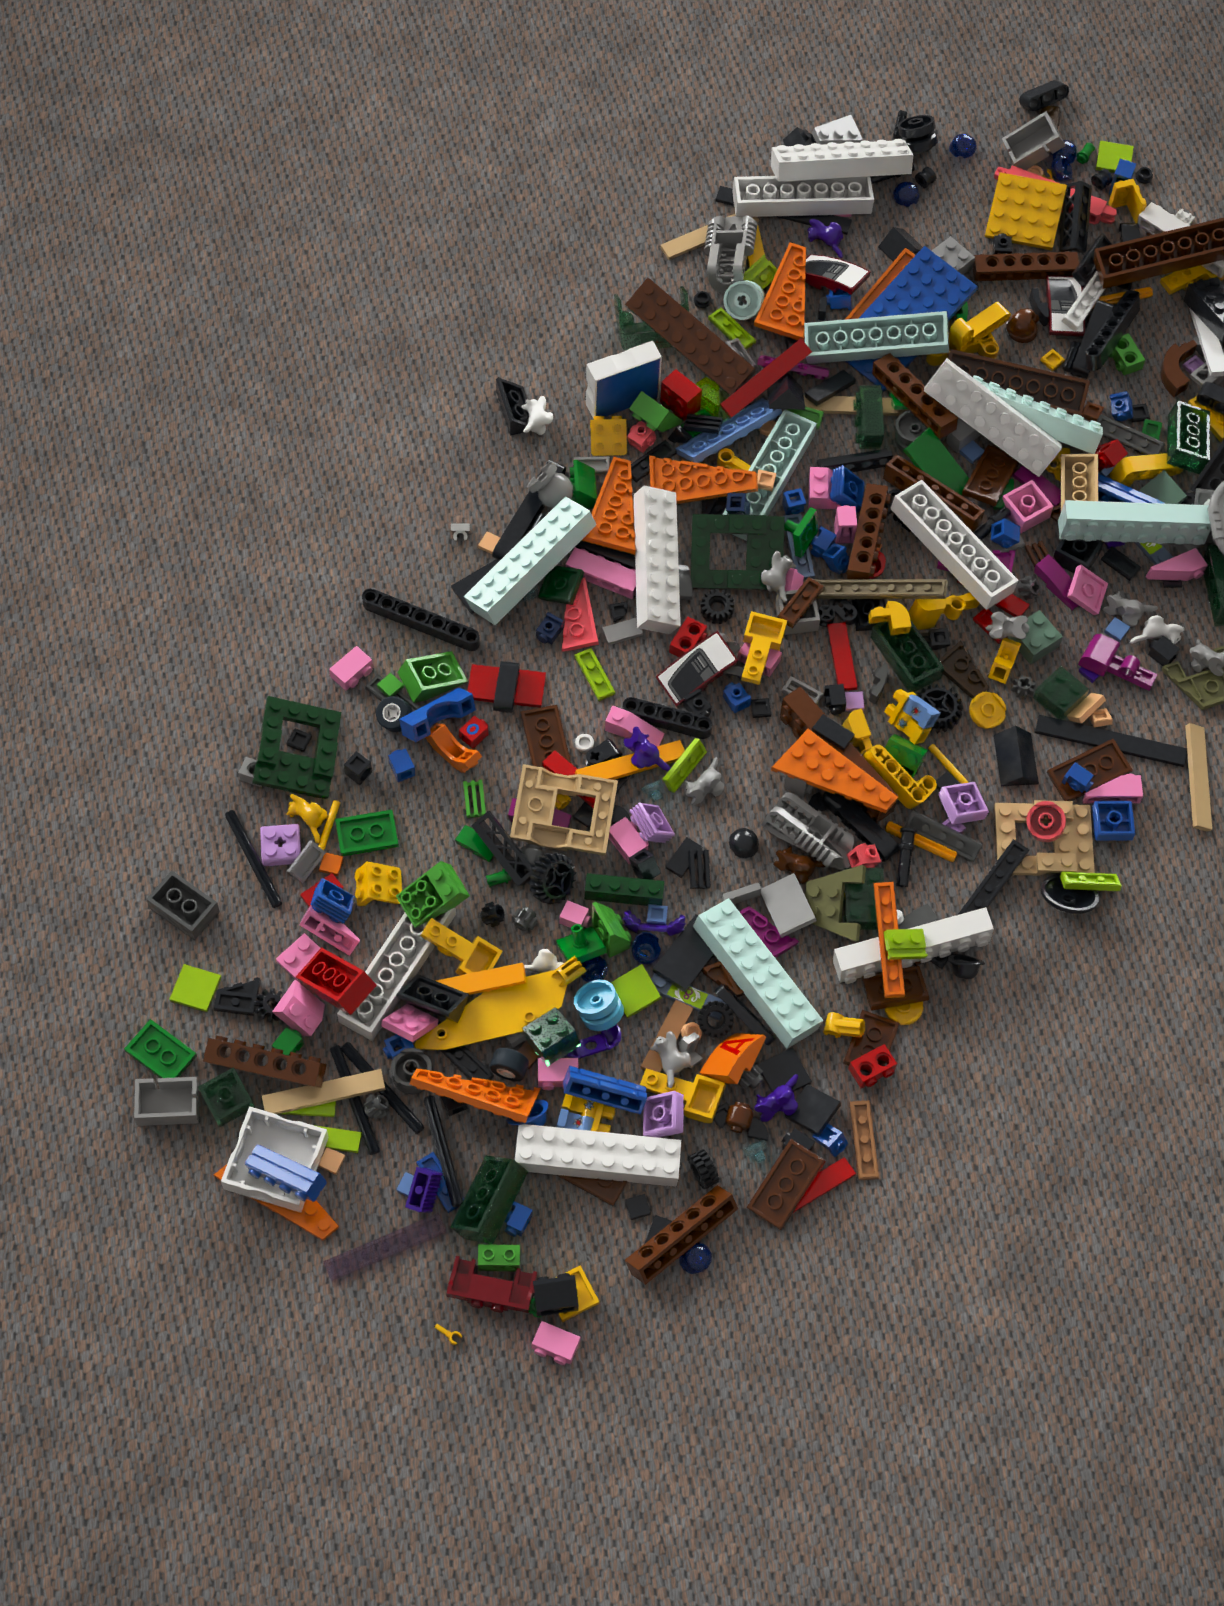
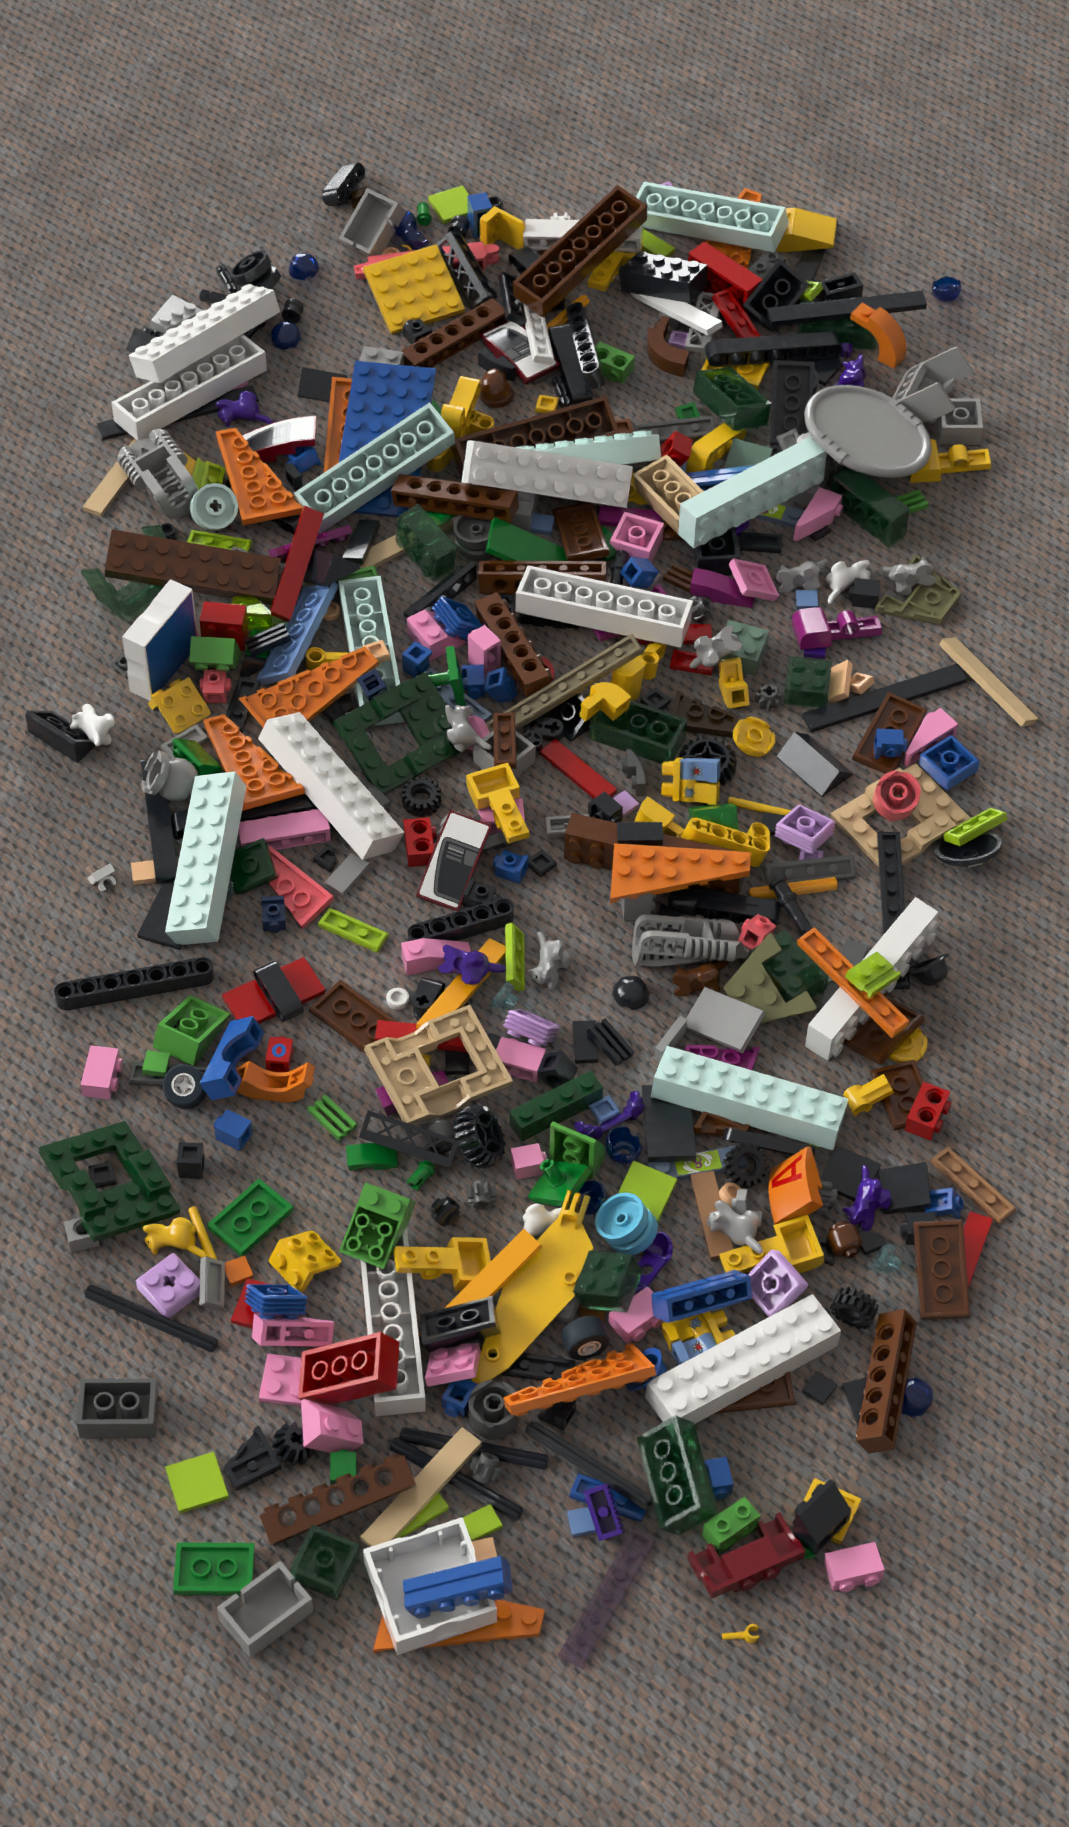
camera: 35 degrees left, 10 degrees down
(879, 133) = (213, 297): none -> black axle
(1121, 406) = (646, 407): blue brick -> none
(1140, 413) = (664, 406): black tile -> none

